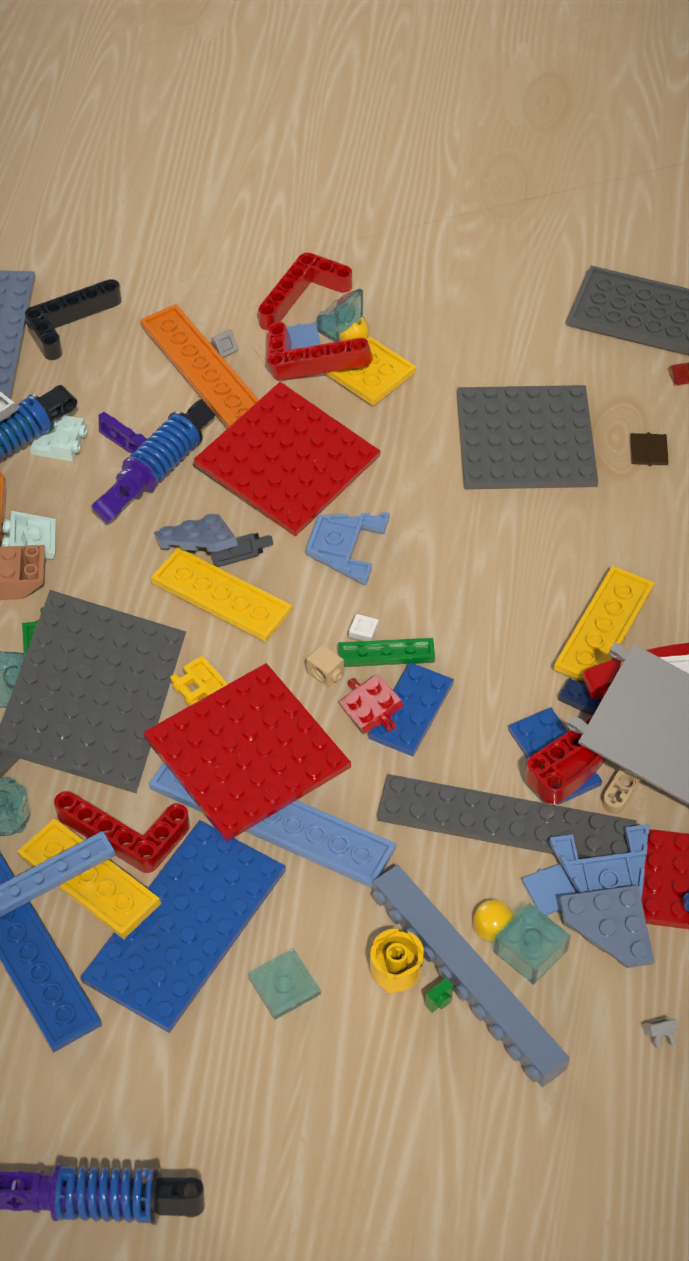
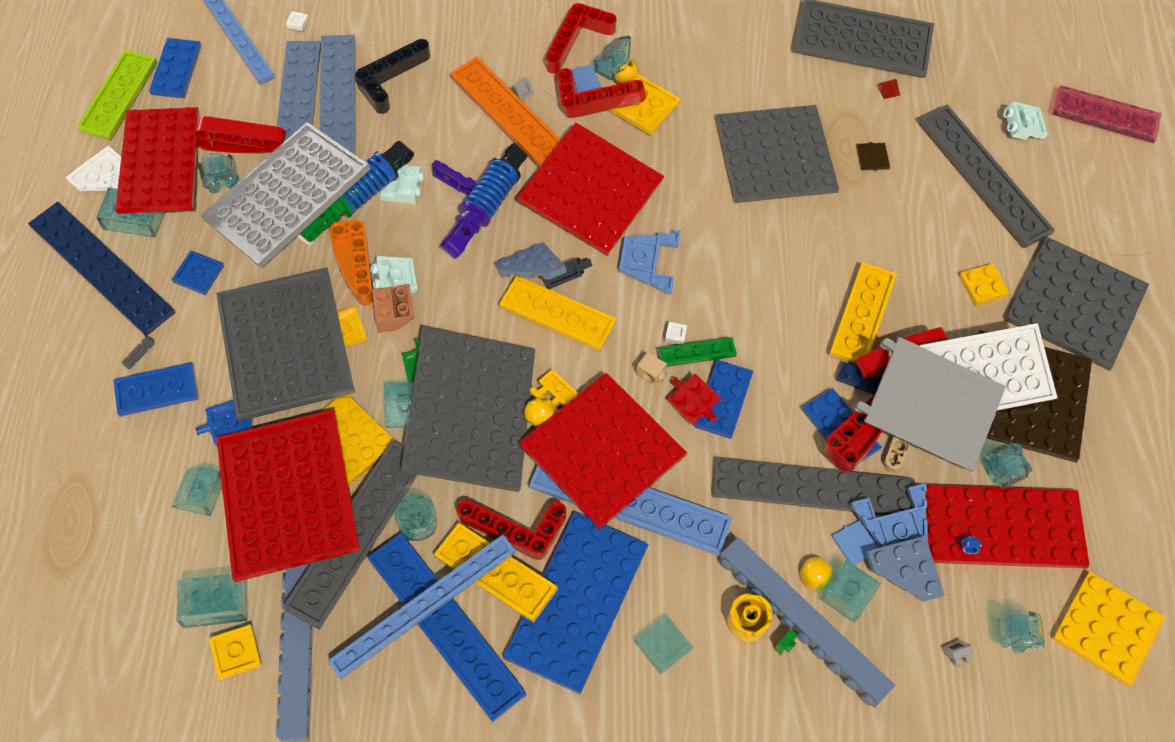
camera: 10 degrees left, 10 degrees up
(175, 698) = (539, 411): none -> yellow hair

